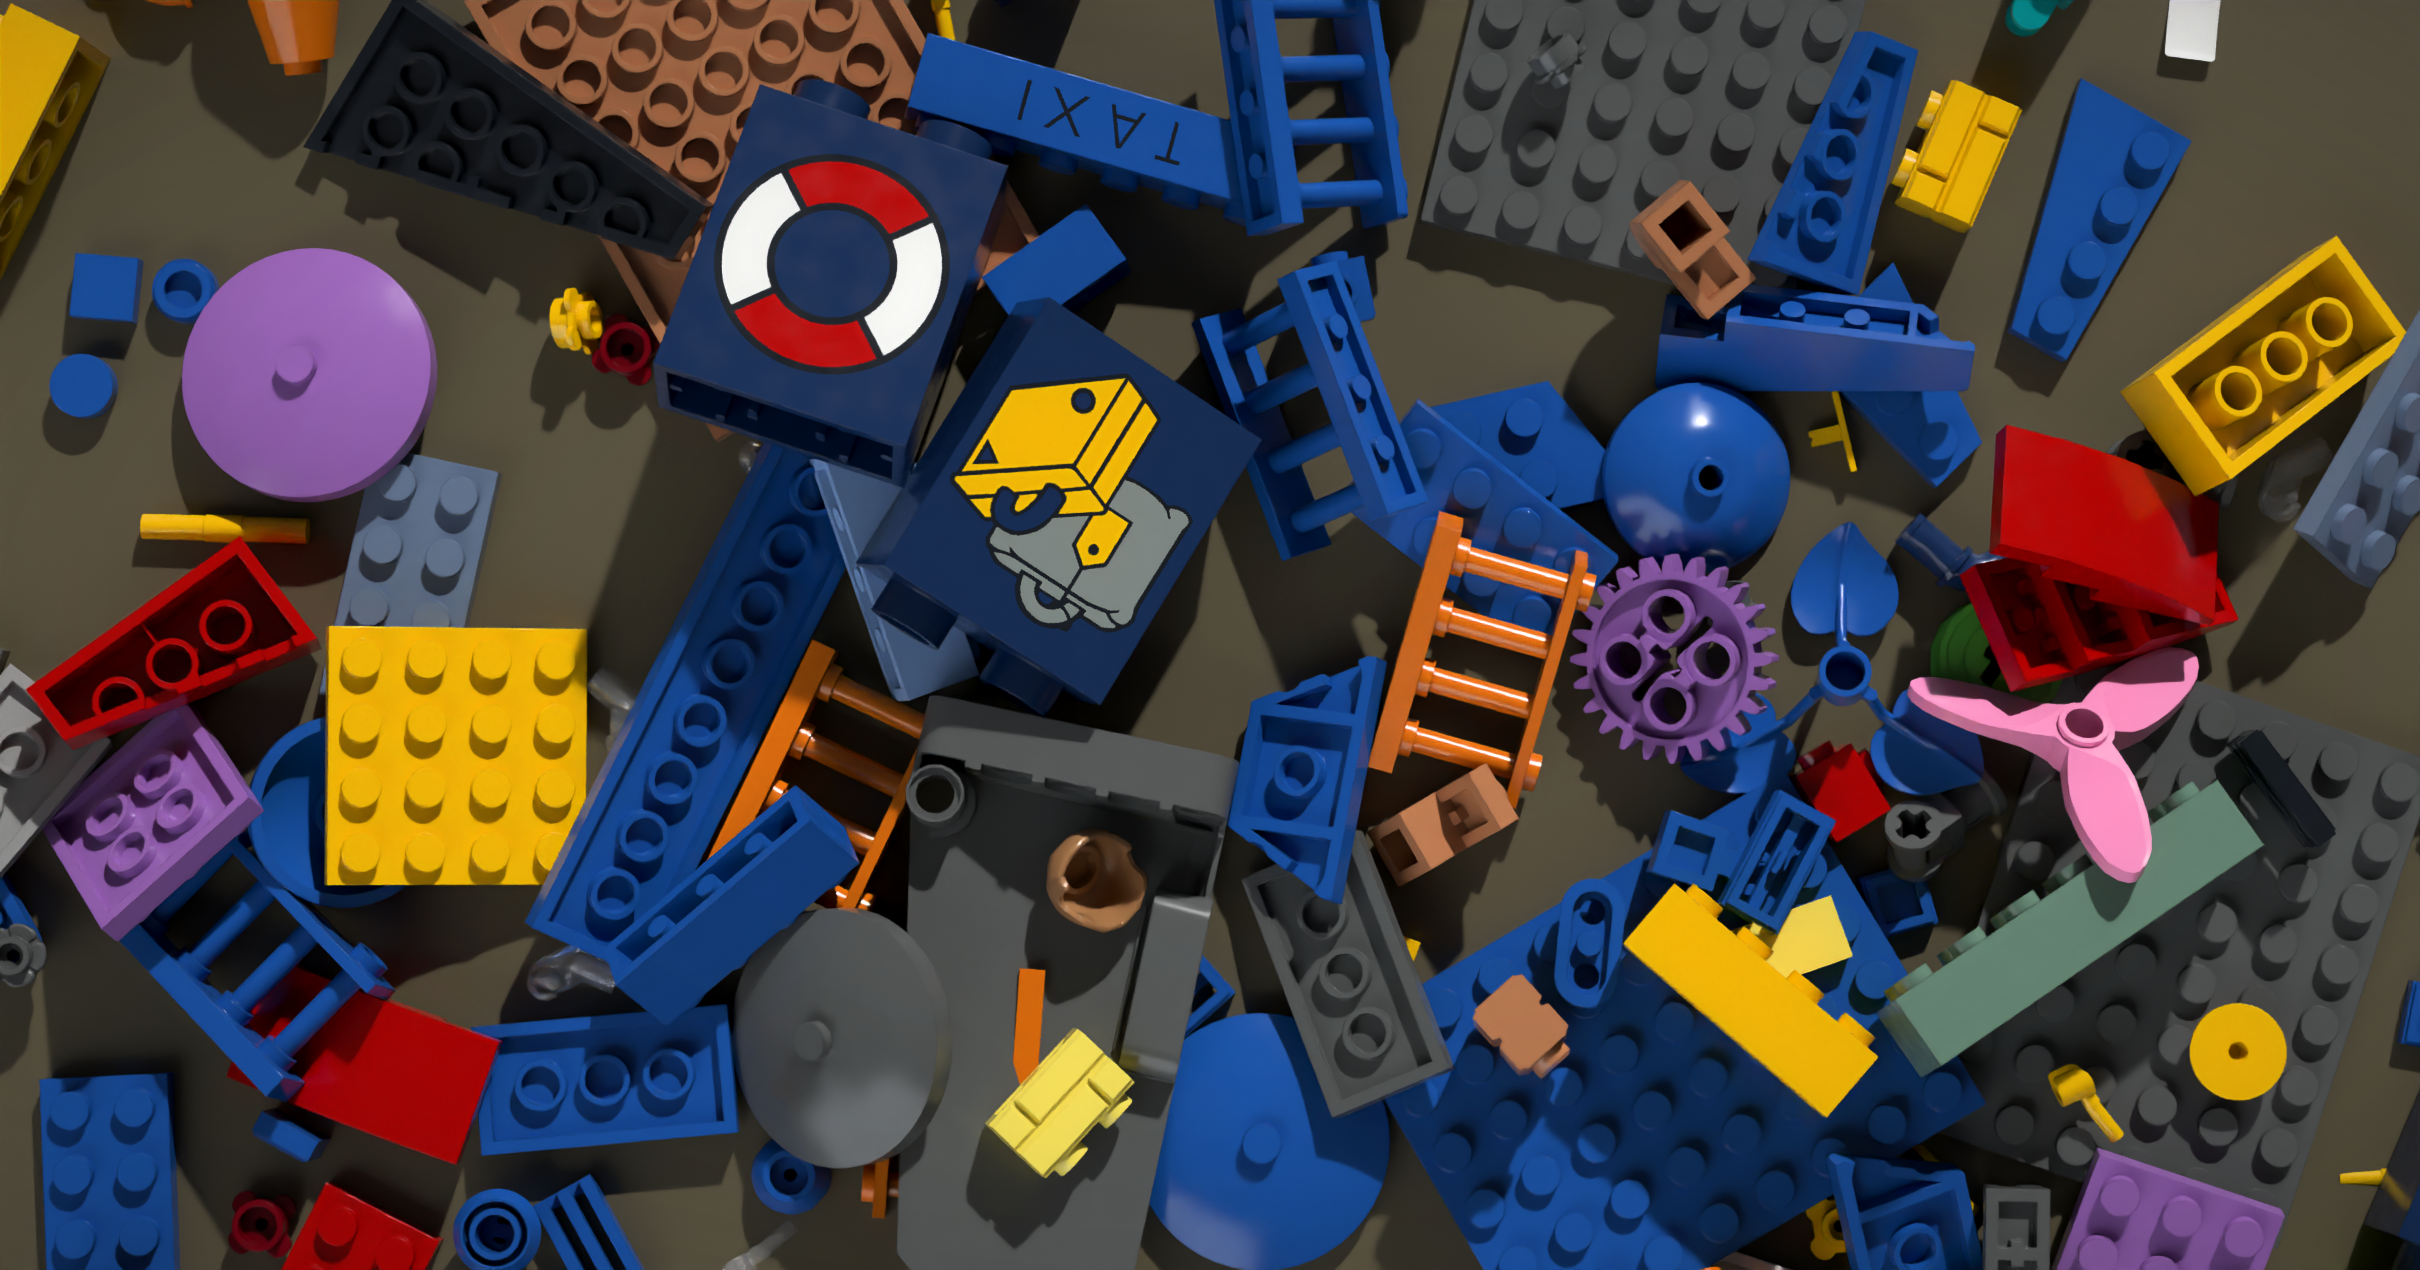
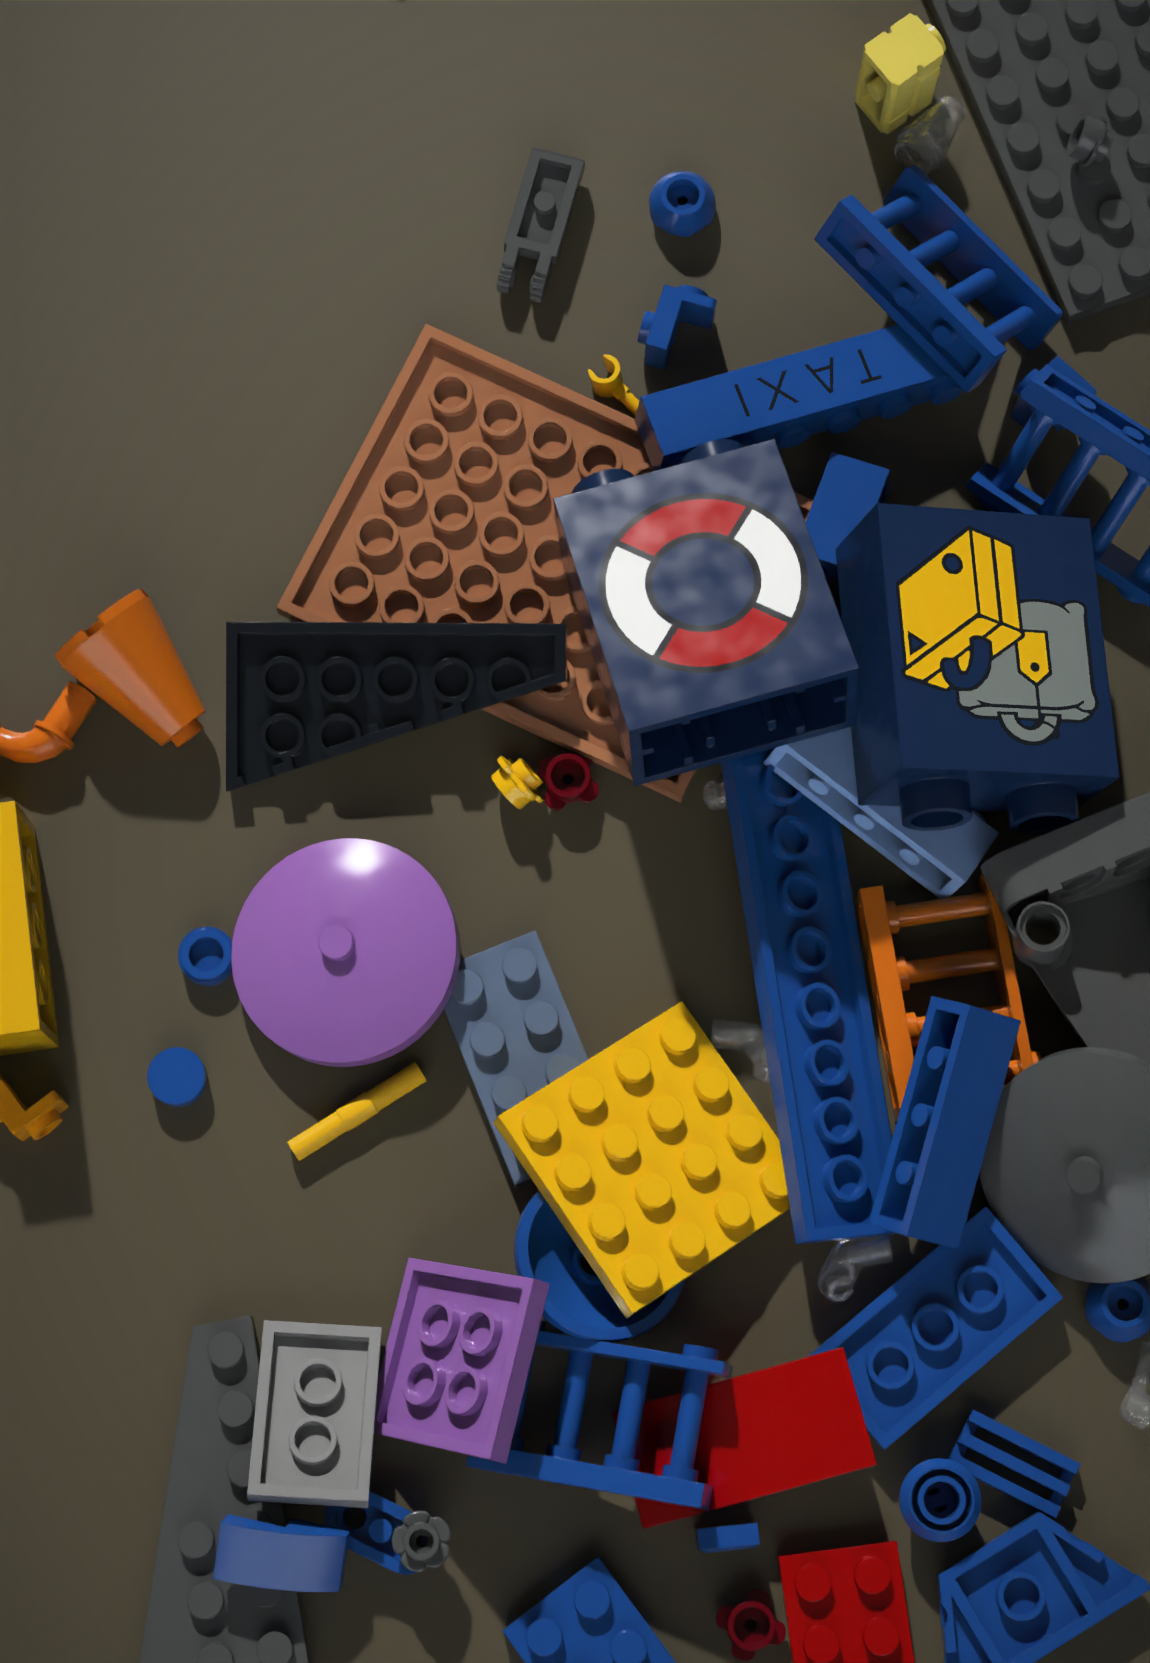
camera: 40 degrees left, 10 degrees down
(106, 288) = (145, 993): blue tile -> none
(180, 646) = (394, 1208): red wedge -> none

